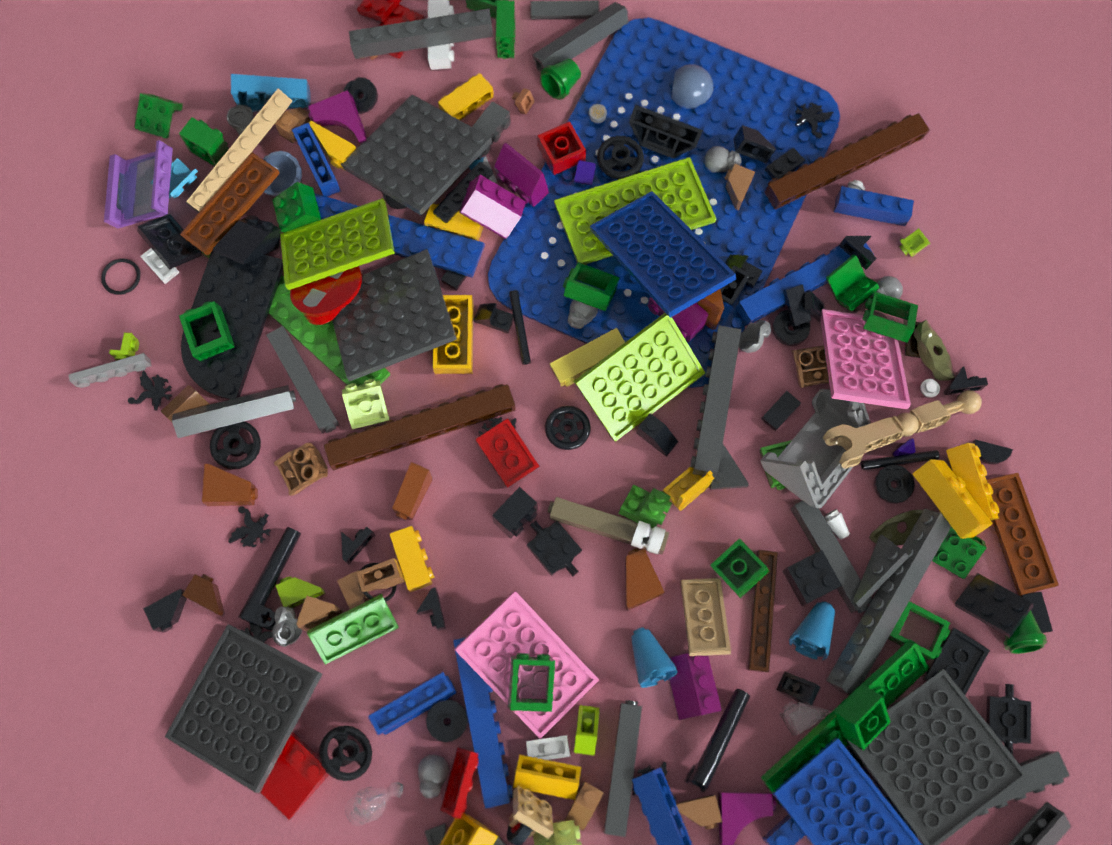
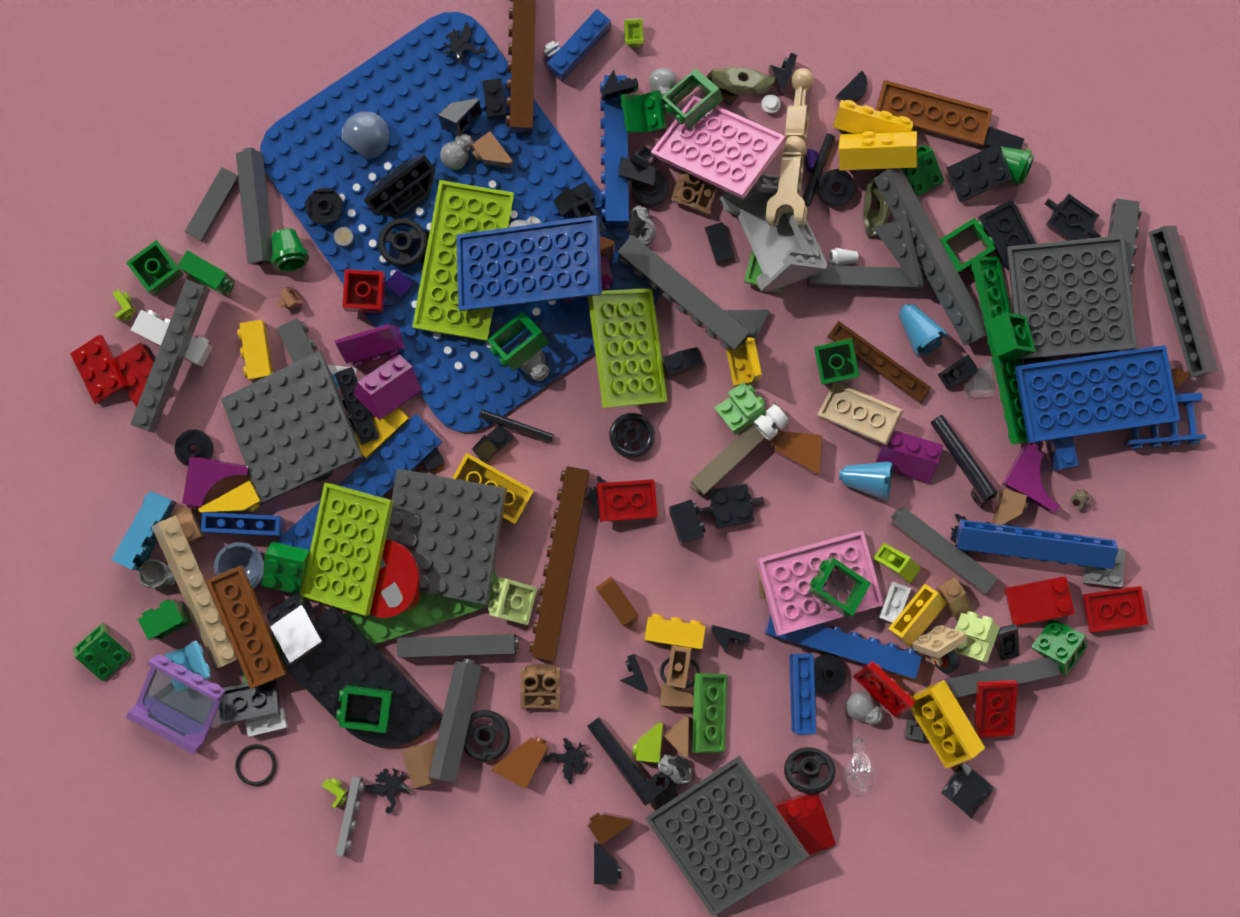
camera: 60 degrees left, 10 degrees up
(584, 358) = (580, 381): light yellow brick -> none
(613, 79) = (323, 197): none -> black plate
(811, 578) = (876, 306): black brick -> none

